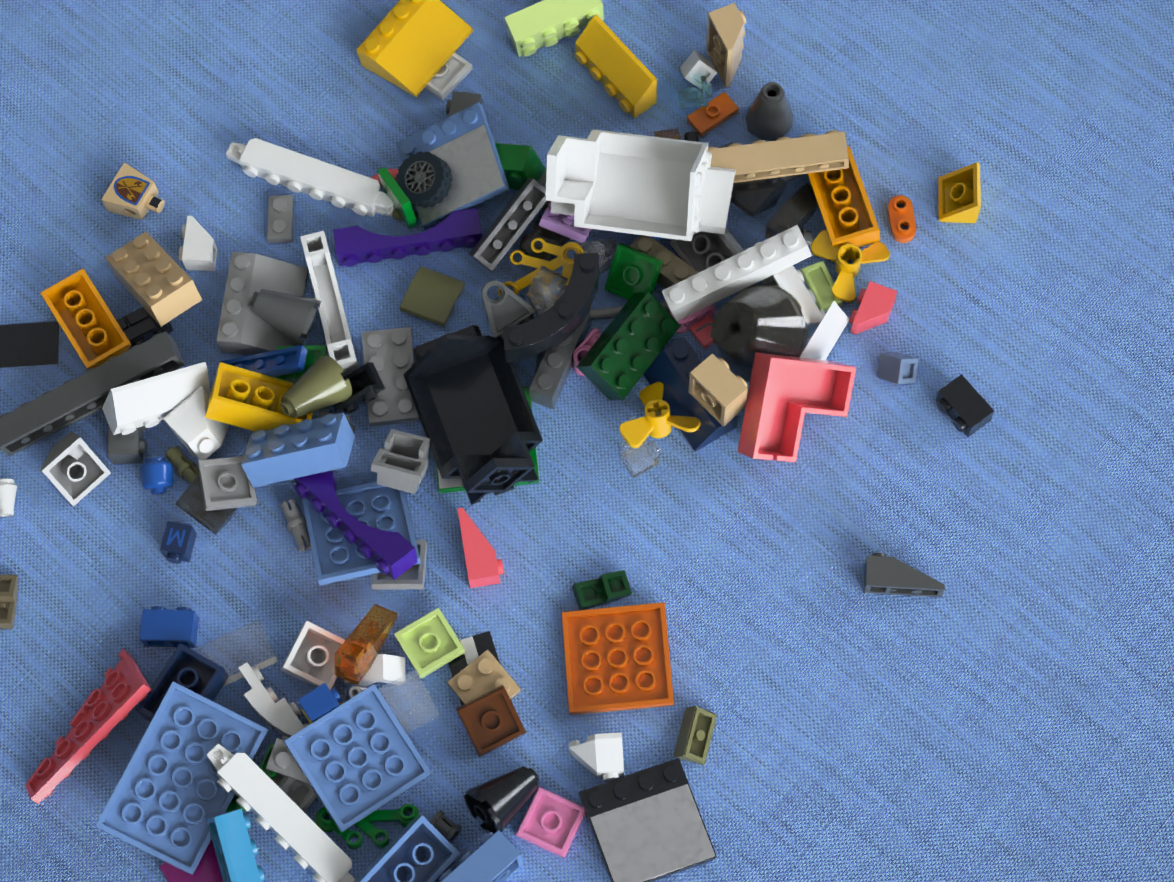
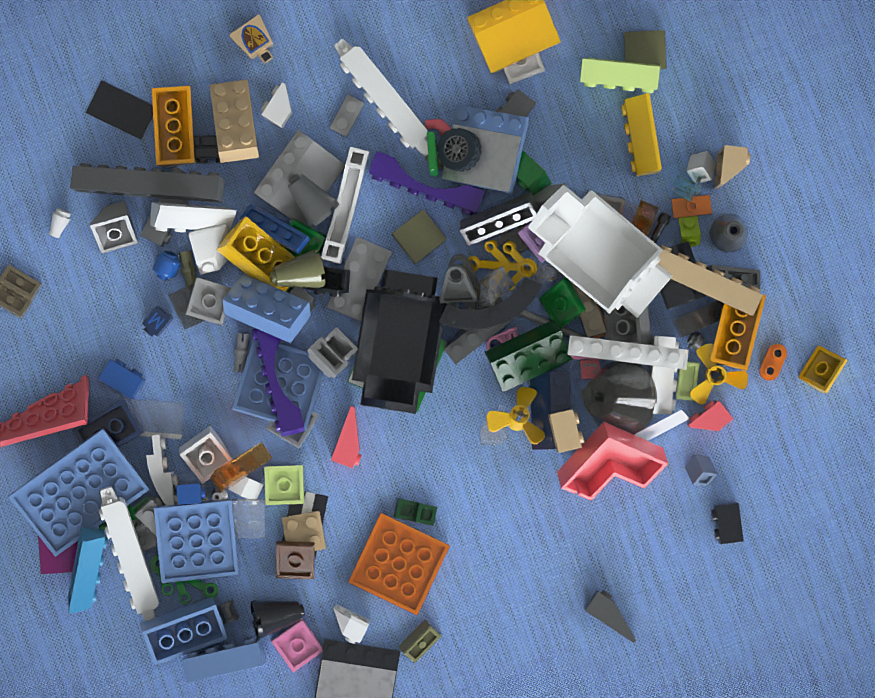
camera: 30 degrees right, 20 degrees up
(724, 133) = (690, 230): none -> lime bracket

